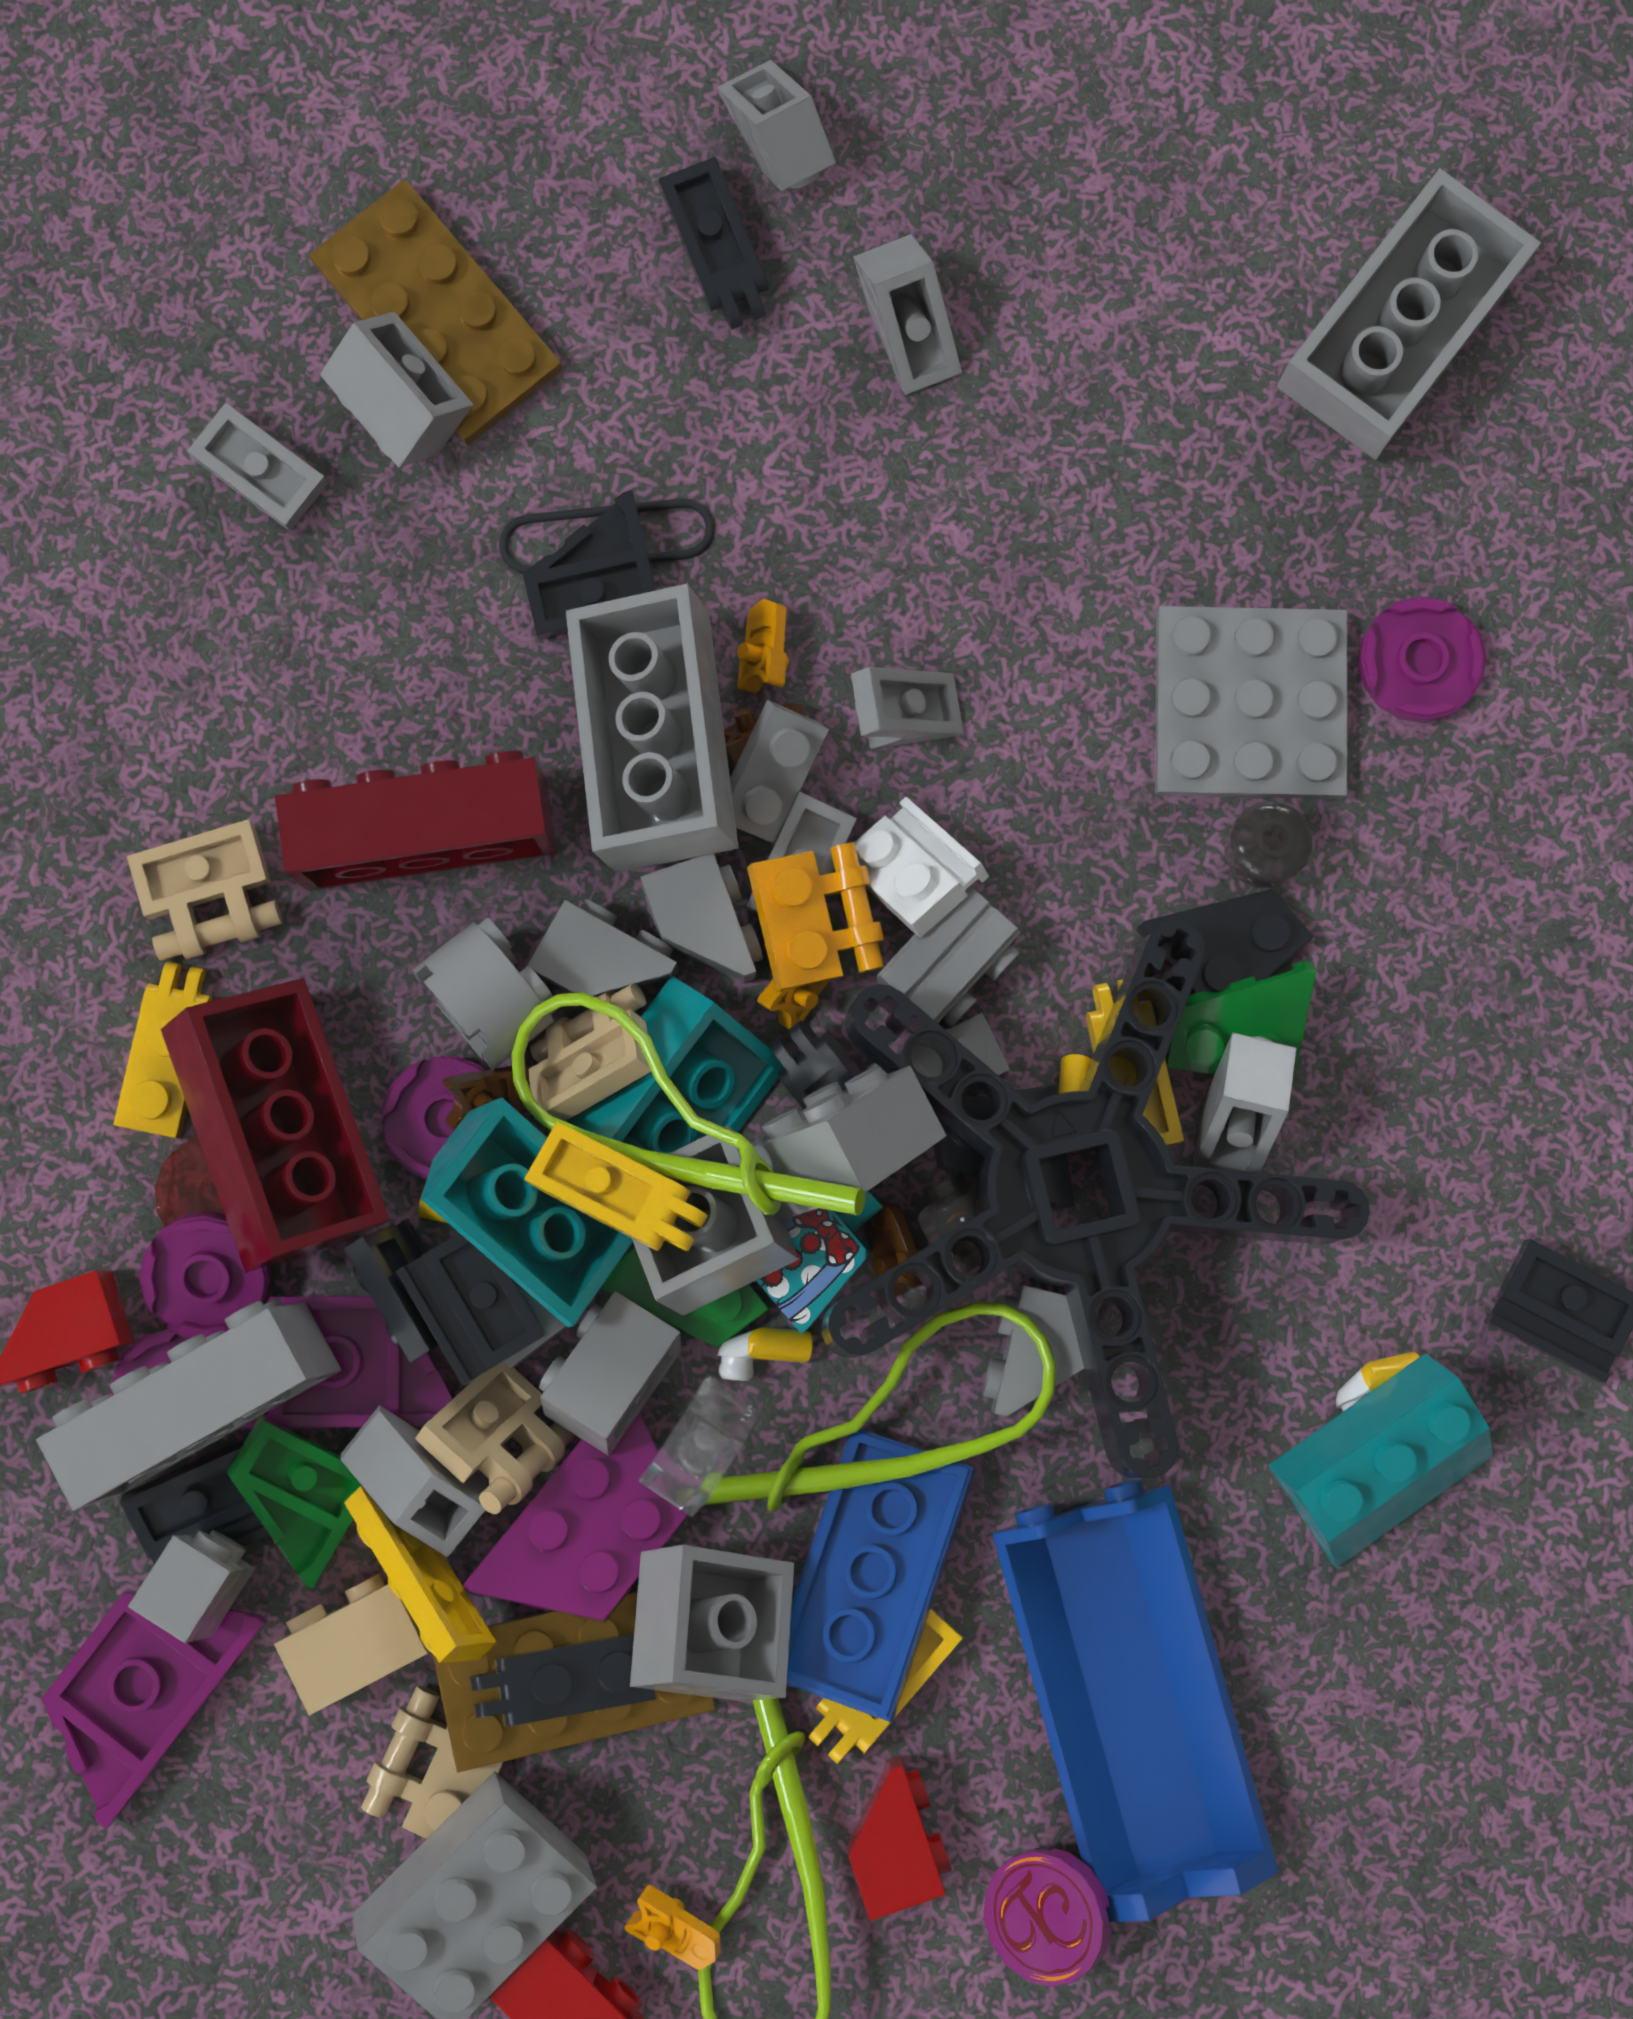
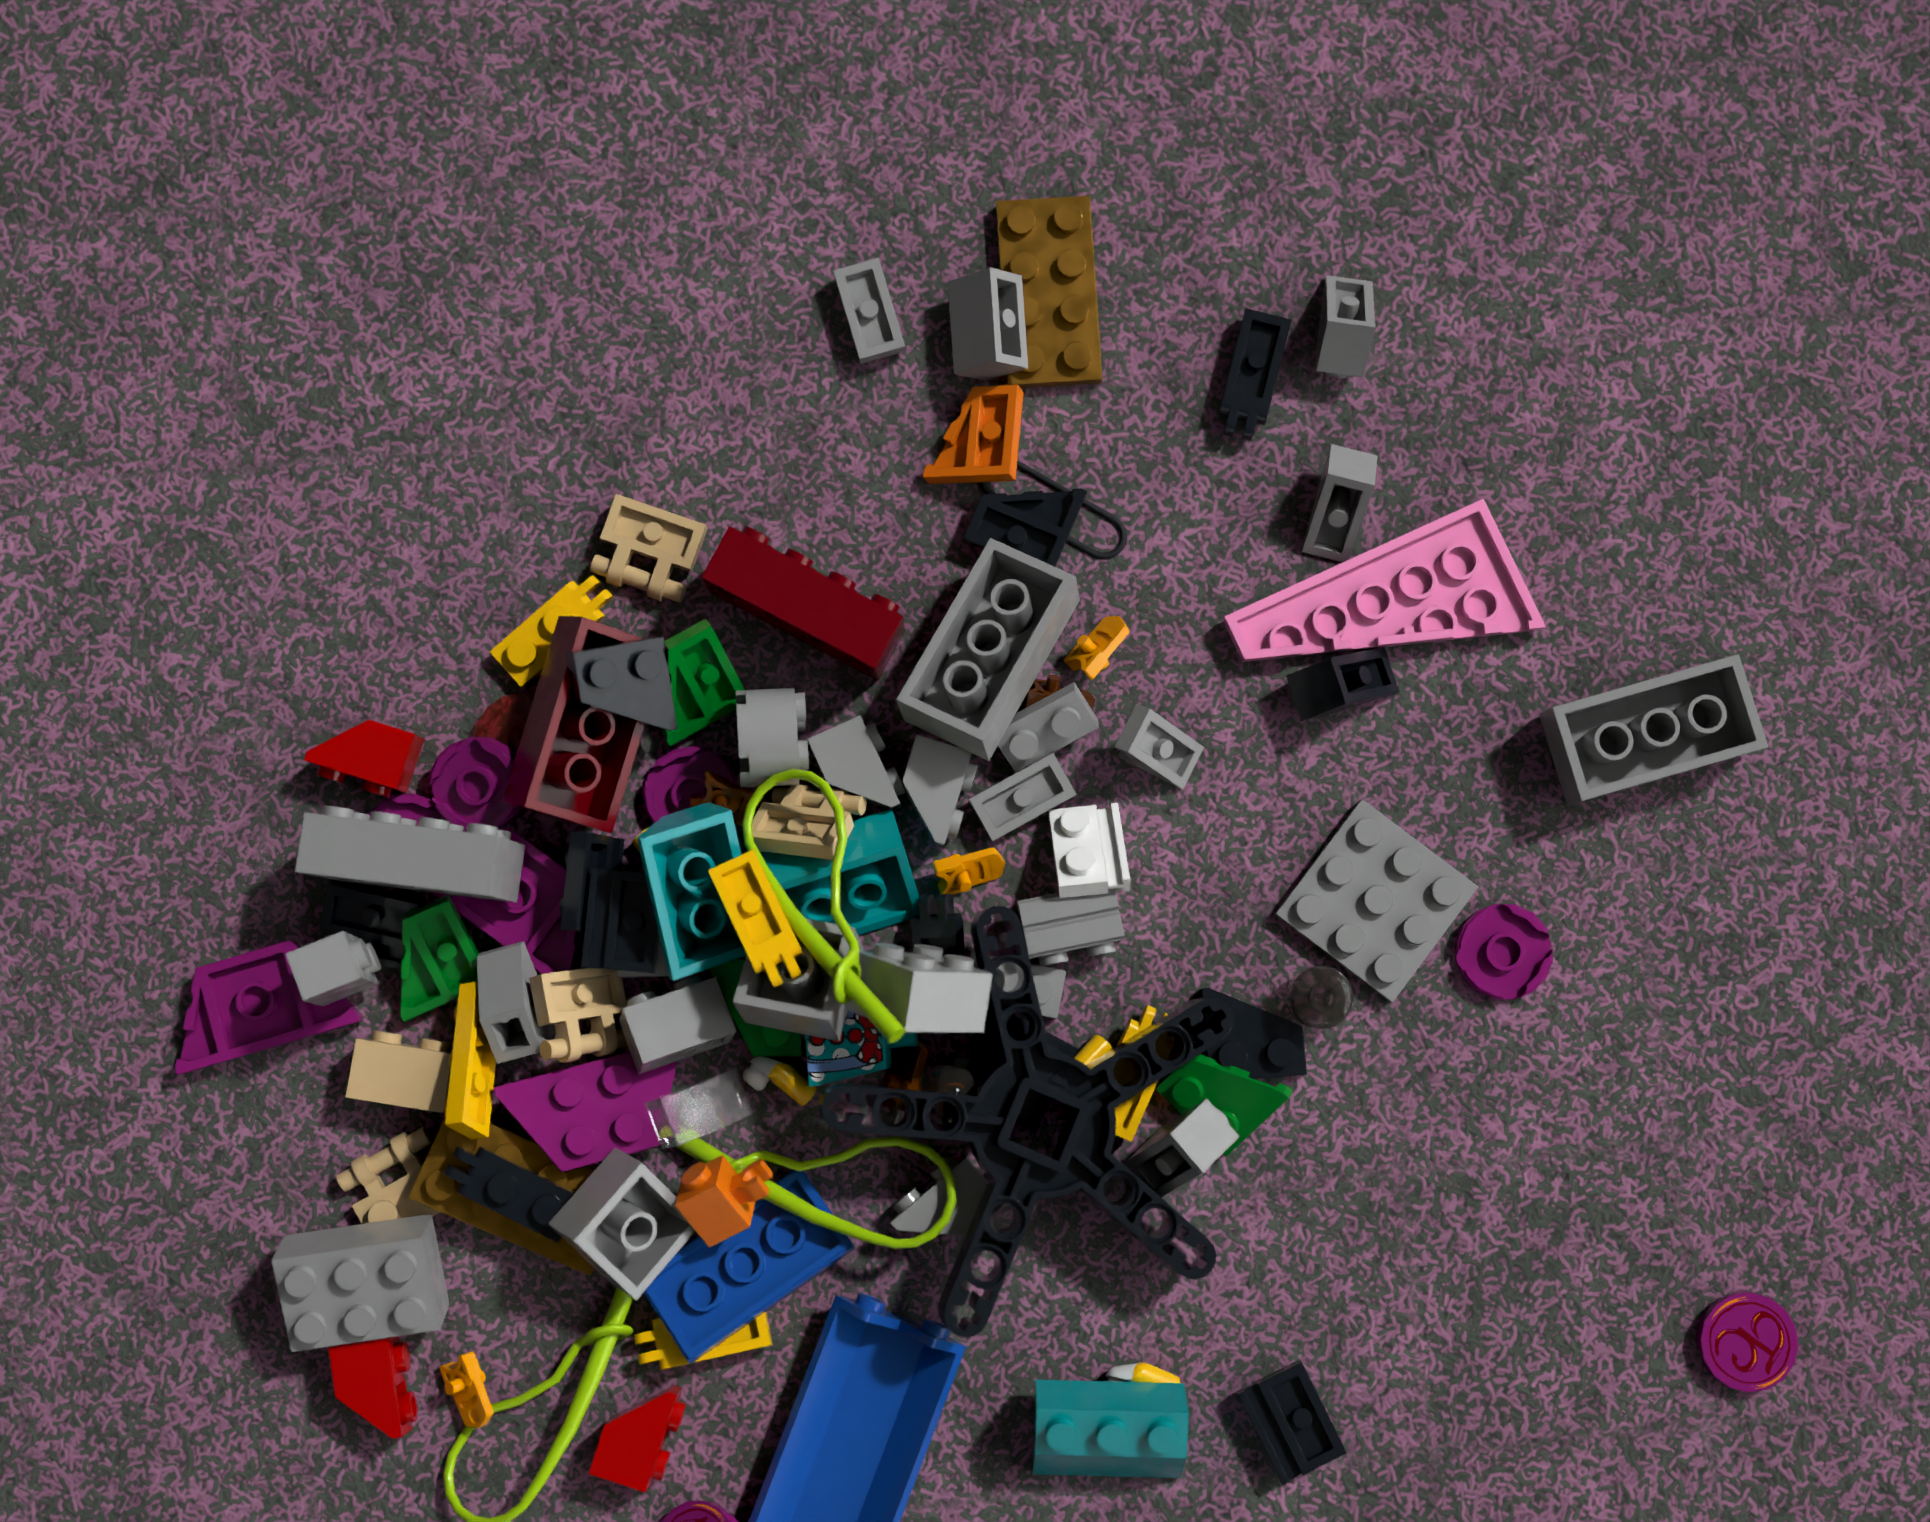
camera: 35 degrees right, 0 degrees up
(284, 1044) = (625, 680): none -> black wing
(362, 993) = (699, 679): none -> green wing
(479, 517) = (982, 439): none -> orange wing
(795, 1523) = (719, 1199): none -> orange brick
(797, 919) = (993, 830): light orange plate -> none
(1048, 500) = (1341, 683): none -> black slope
(1054, 345) = (1416, 589): none -> bright pink wing

